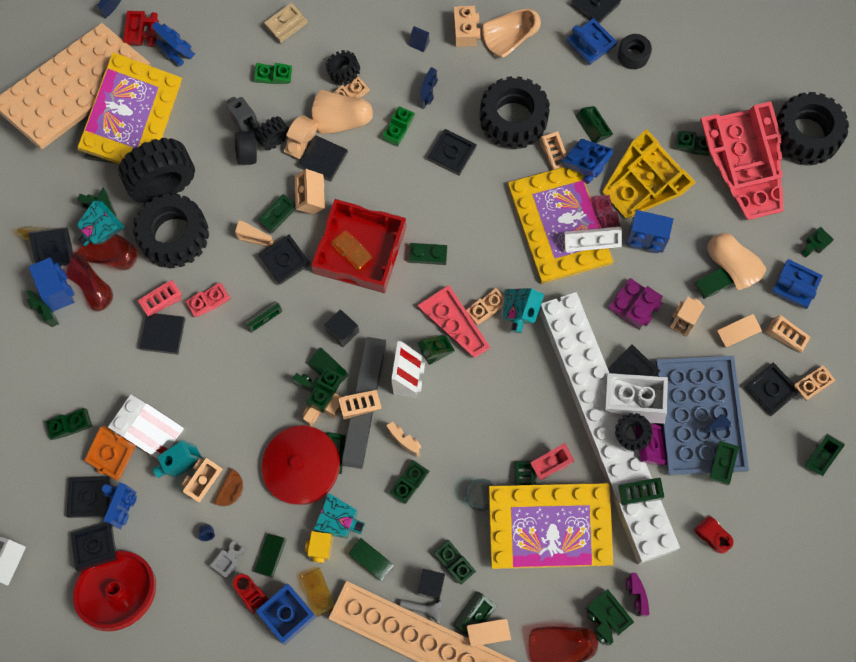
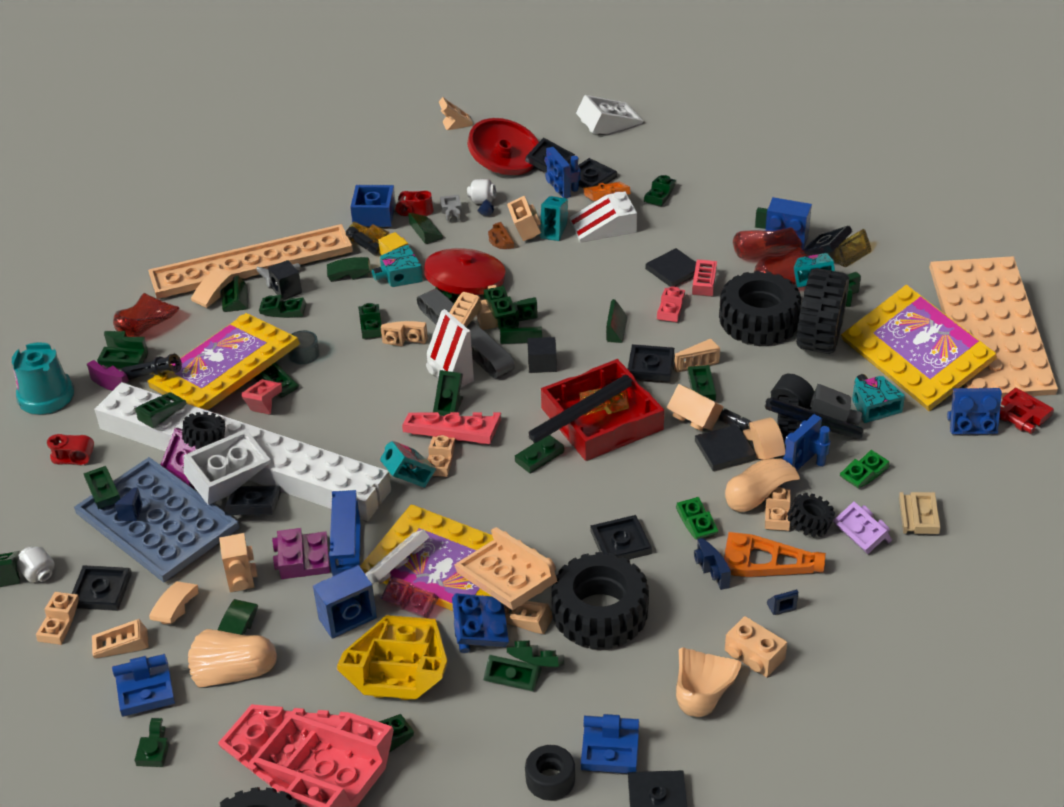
camera: 135 degrees right, 30 degrees down
(190, 551) = (481, 190): none -> white head
(202, 107) = (876, 398): none -> teal torso
(270, 110) = (801, 414): none -> black axle
(290, 105) = (806, 442): none -> blue plate
(293, 170) = (734, 419): none -> black axle
(326, 38) = (862, 528): none -> lavender bracket
(332, 580) = (362, 240): none -> black axle
(382, 241) = (580, 408): none -> black axle
(402, 87) = (739, 551): none -> orange plate
(549, 165) = (508, 570): none -> light nougat bracket
(578, 116) = (530, 654): none -> dark green slope
(603, 556) = (158, 366): none -> black pin
(610, 277) = (345, 531): none -> blue door
(692, 627) = (41, 380): none -> teal piece
(803, 439) = (35, 564): none -> white head

